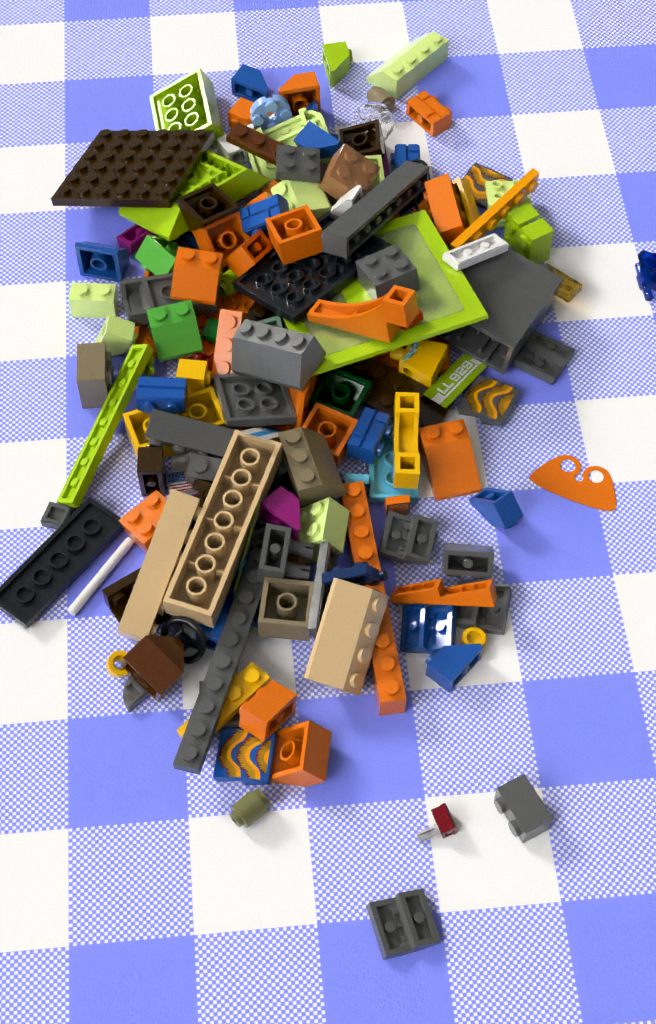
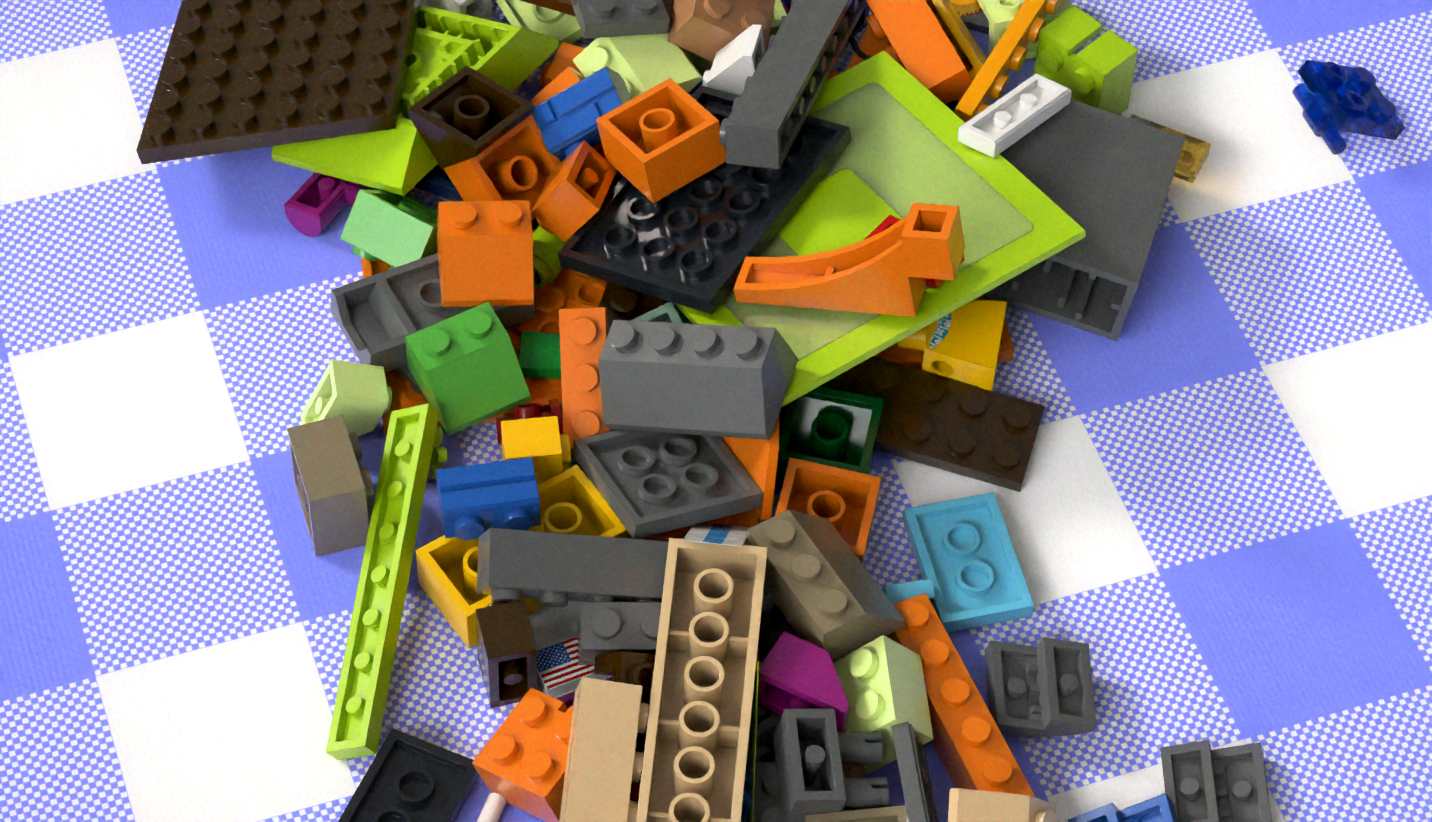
camera: 15 degrees left, 5 degrees down
(55, 515) = (332, 779): dark grey tile -> none
(93, 300) = (277, 338): yellowish green brick -> none
(102, 261) = (271, 258): blue slope -> none
(359, 574) = (994, 772): dark blue plate -> none
(368, 435) = (908, 504): blue brick -> none
(384, 269) = (864, 184): dark grey brick -> none
(397, 504) = (999, 625): orange tile -> none
(405, 440) = (995, 538): yellow arch -> none
(433, 592) = (1121, 782): orange slope -> none
(449, 459) = (1067, 522): orange slope -> none
(454, 380) = (1032, 368): lime sticker -> none
(467, 560) = (1168, 707): dark grey brick -> none
(489, 401) = (1106, 395): slope -> none
(497, 507) = (1188, 594): blue slope -> none
(543, 357) = (1181, 295): dark grey slope -> none
(585, 492) = (1335, 535): orange piece -> none

